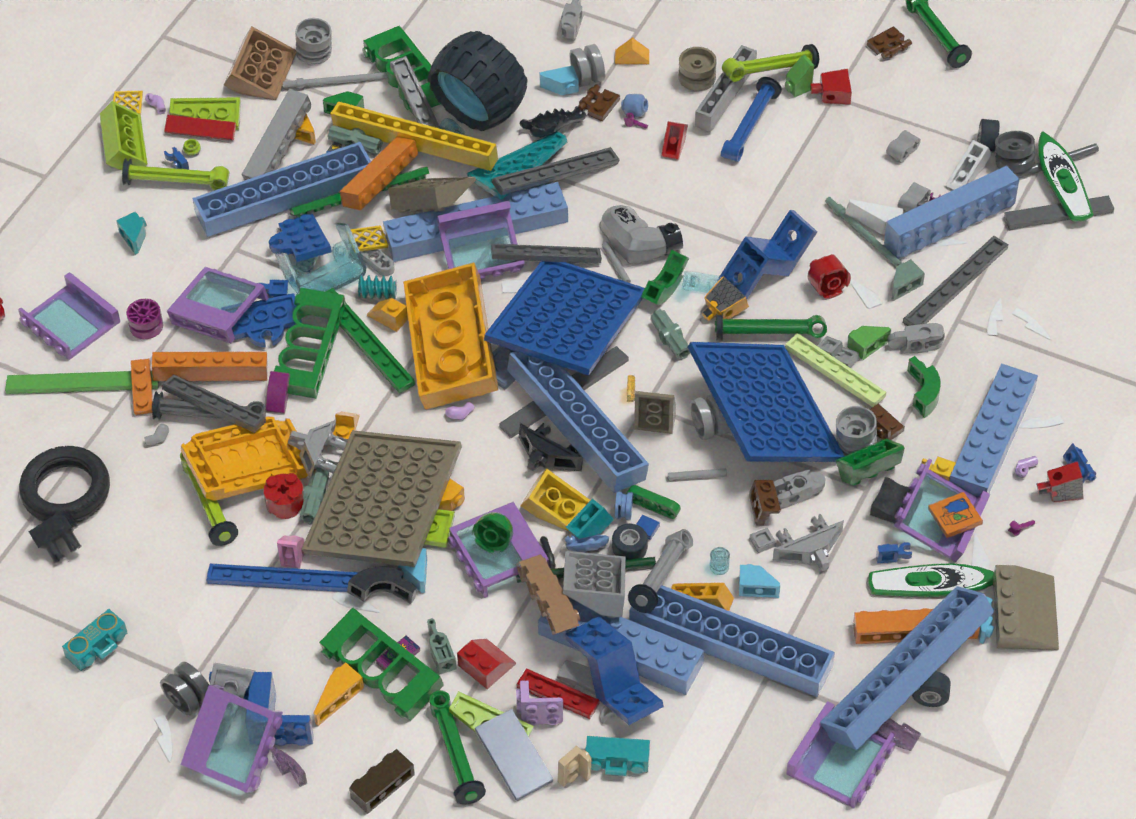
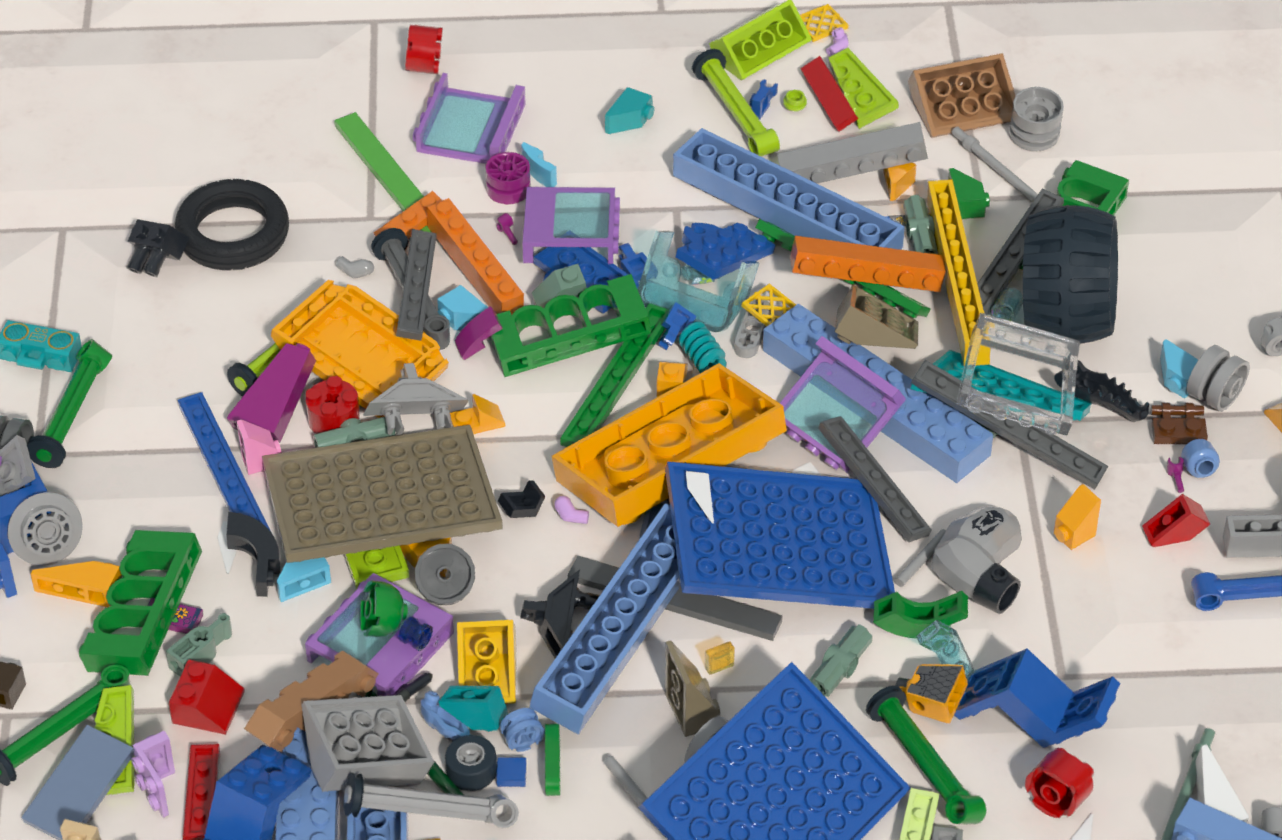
camera: 60 degrees right, 5 degrees down
(138, 612) = (47, 448): none -> green piece
(156, 295) = (540, 170): none -> medium azure slope
(180, 340) = (504, 224): none -> magenta hand
(249, 390) = (459, 307): none -> medium azure slope
(255, 520) = (276, 391): none -> magenta slope
(276, 331) = (560, 282): none -> sand green slope
(285, 689) = (47, 531): none -> light grey wheel
(346, 287) = (675, 322): none -> blue plate
(437, 427) = (522, 503): none -> black bracket
(480, 490) = (460, 569): none -> dark grey wheel
(517, 124) = (1027, 343): none -> clear windscreen
(517, 330) = (699, 487): none -> white sticker
(522, 522) = (415, 633): none -> clear blue wheel
(645, 176) = (1078, 518): none -> light orange slope

